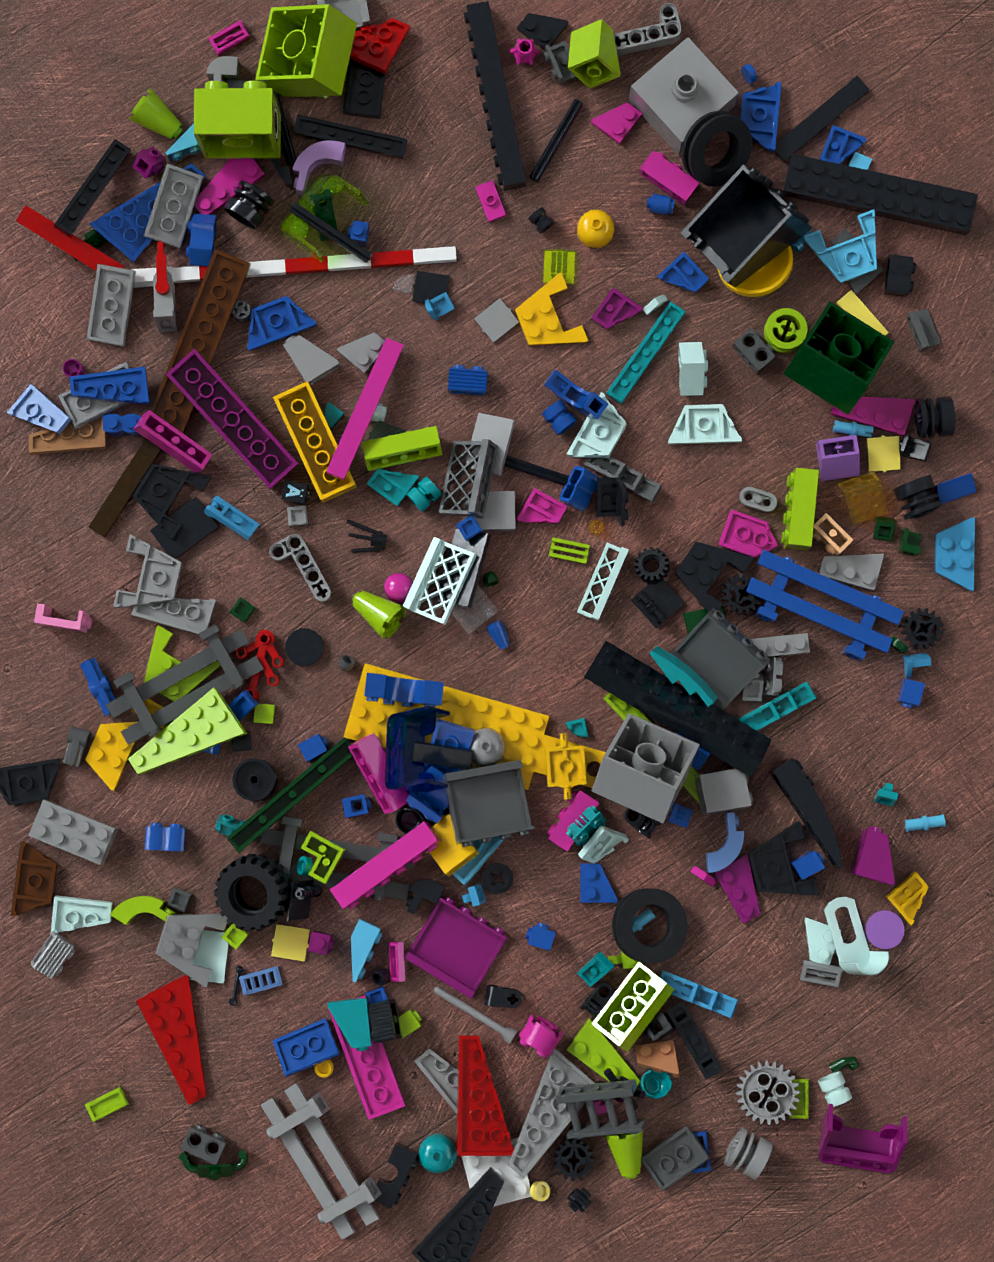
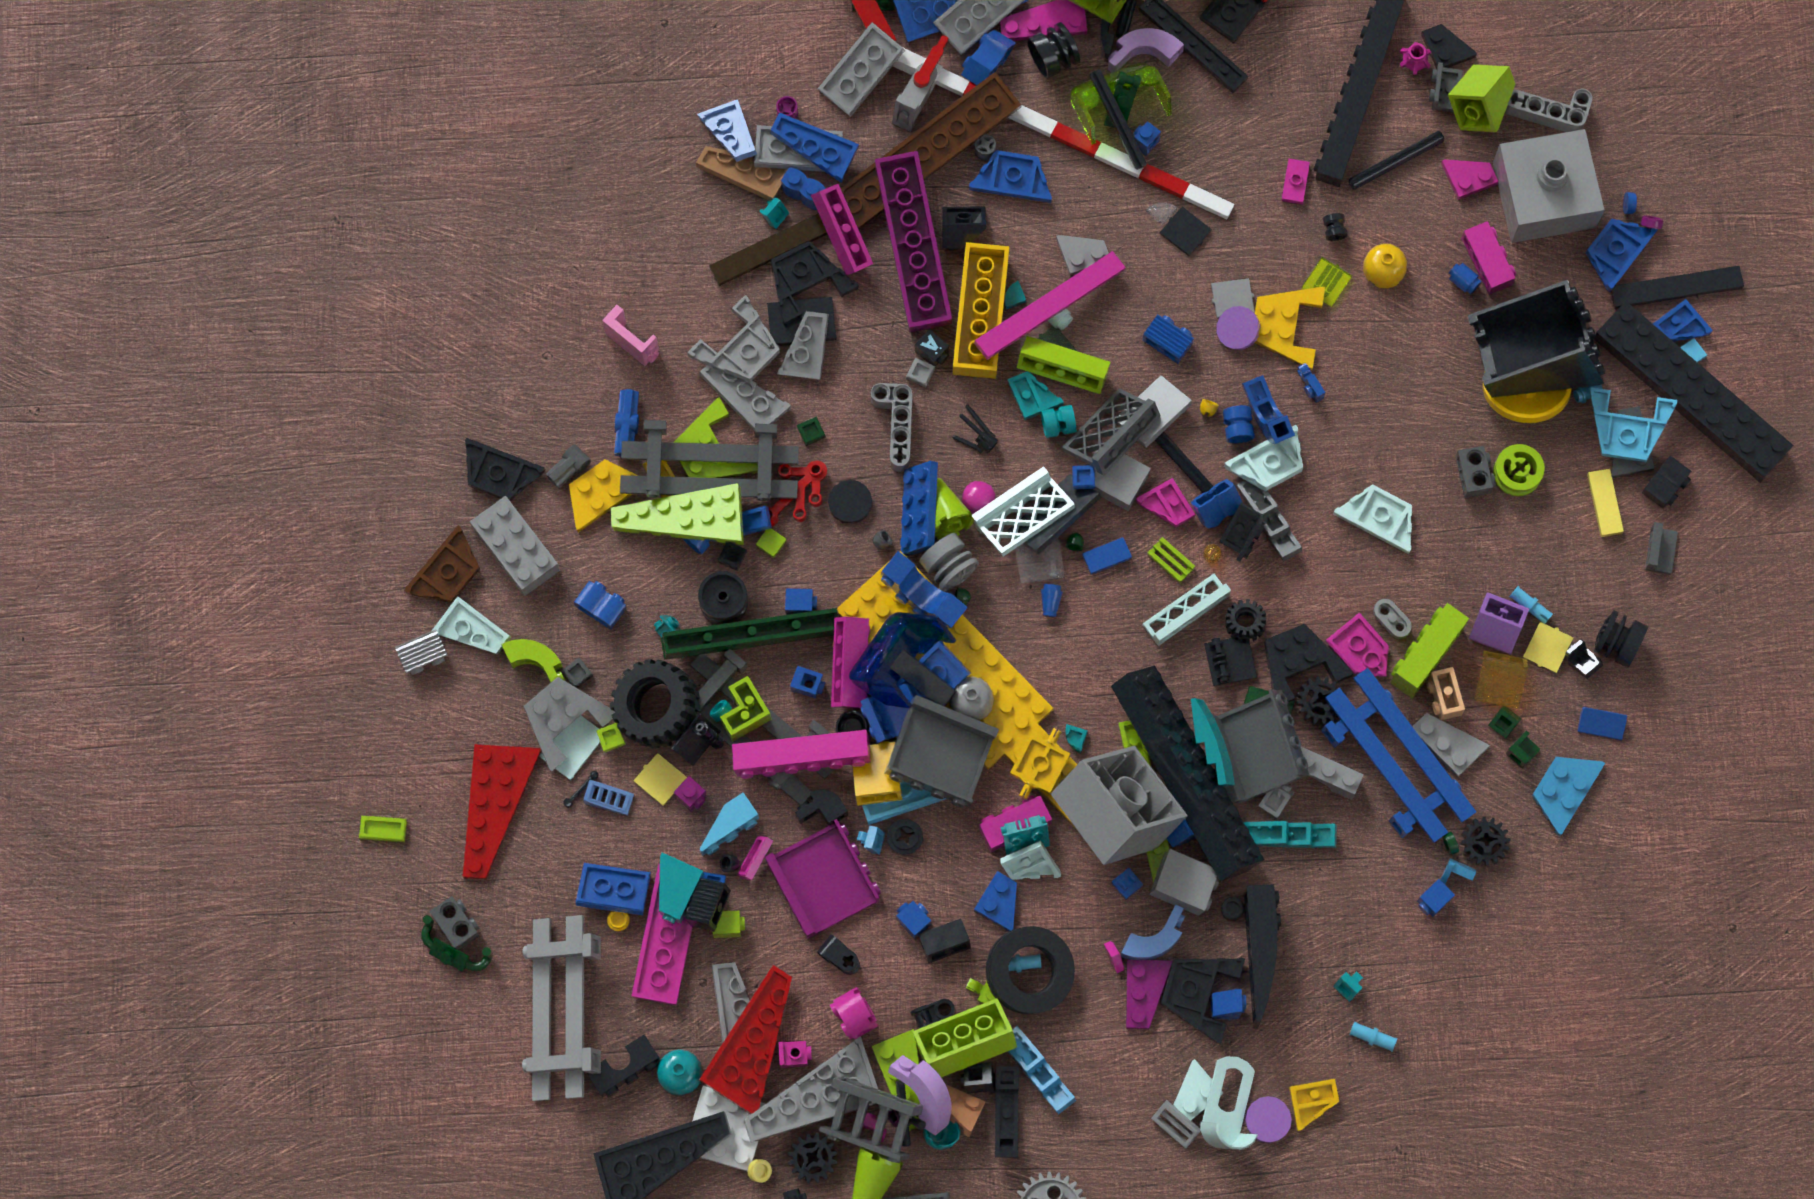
camera: 30 degrees right, 10 degrees down
(113, 456) = (774, 212): none -> teal tile
(202, 549) = (807, 349): none -> light grey wing
(231, 517) = (855, 336): dark azure plate -> none
(261, 383) = (961, 225): none -> black slope
(310, 359) = (1024, 230): light grey slope -> none
(360, 623) = (919, 508): none -> blue plate
(407, 652) = (946, 558): none -> light grey wheel
(431, 671) = (963, 595): none -> dark green hinge
(439, 306) = (1183, 251): dark azure tile -> none
(507, 1033) = (822, 995): light grey piece -> none
(507, 1095) = (787, 1060): none -> dark pink brick
(515, 342) = (1238, 327): none -> medium lavender tile
(520, 575) = (1107, 556): none -> blue tile
(528, 416) = (1208, 406): none -> yellow hinge
(573, 939) = (945, 940): none -> black hinge
(595, 969) = (949, 983): teal slope -> none
(596, 355) = (1312, 386): none -> blue plate
(615, 310) = (1357, 354): magenta wing -> none
(629, 1062) = (929, 1090): none -> lavender arch
(641, 823) = (1083, 866): black piece -> none
(645, 352) = (1364, 413): teal tile -> none
(654, 304) = (1401, 371): light aqua tile -> none
(684, 274) = (1448, 358): blue wing -> none
(692, 368) = (1401, 449): light aqua brick -> none
(698, 138) = (1542, 227): black tyre -> none
(767, 788) = (1232, 908): none -> black tile
(772, 685) = (1309, 792): light grey hinge -> none
(774, 78) = (1652, 222): none -> magenta tile
(839, 358) = (1554, 520): dark green brick -> none
(873, 857) = (1297, 1036): magenta slope -> none
(881, 413) = (1569, 607): dark pink wing -> none
(918, 497) = (1556, 707): black wheel -> none

